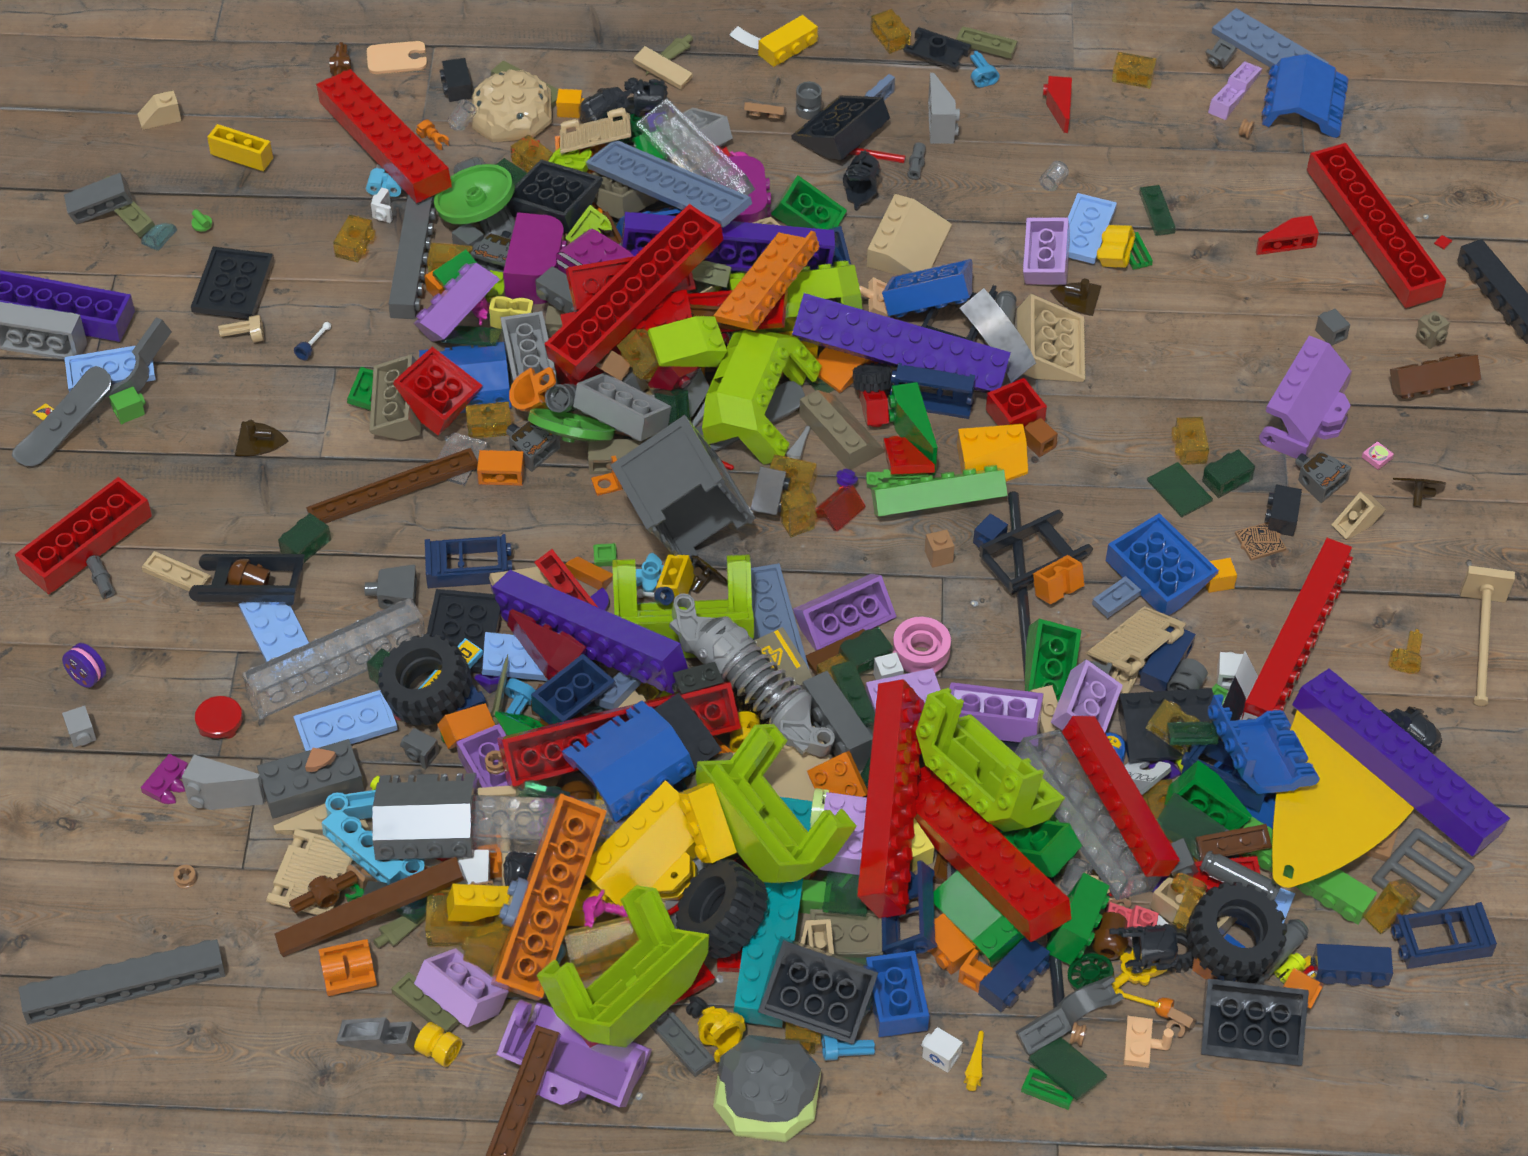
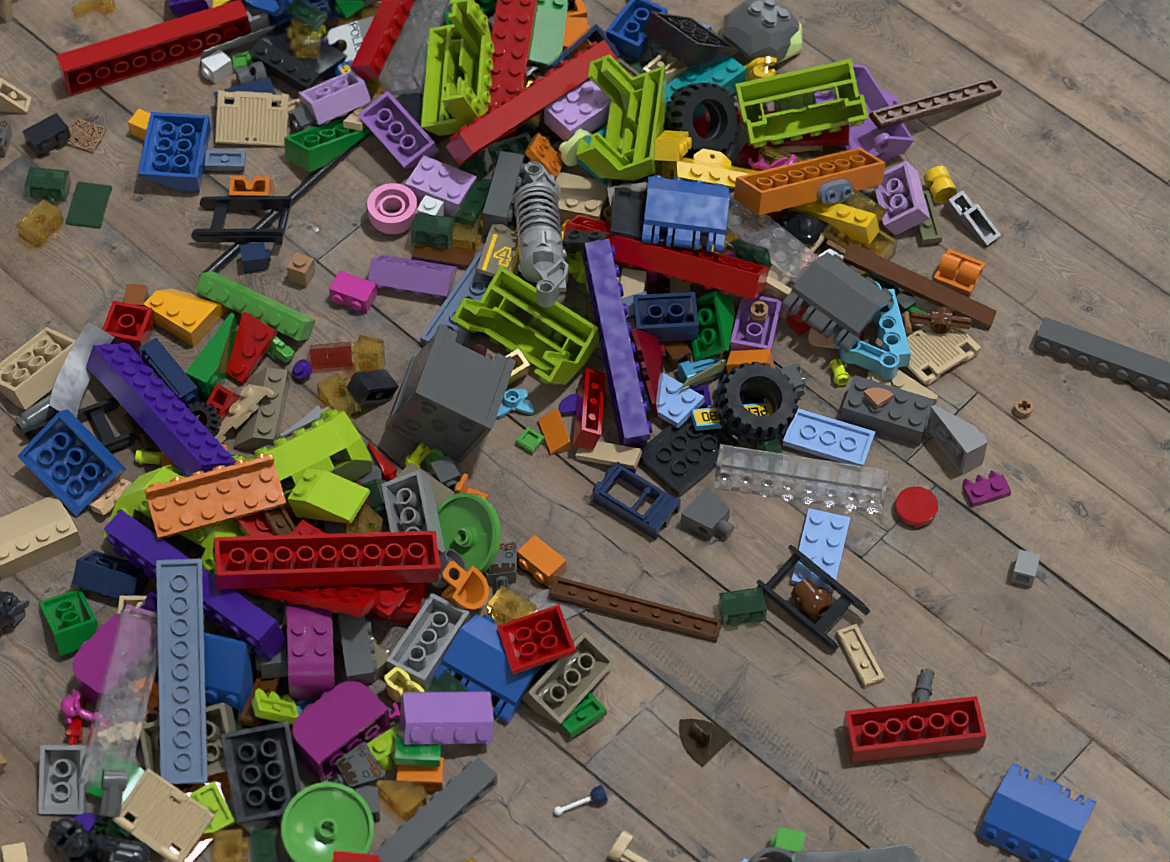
camera: 140 degrees left, 5 degrees up
(84, 665) = (991, 608): dark purple head -> none
(639, 109) = (113, 785): none -> dark grey piece
(659, 595) = (532, 354): dark blue hinge -> none
(851, 409) = (243, 408): none -> tan wing
(878, 560) = (353, 292): none -> dark pink brick

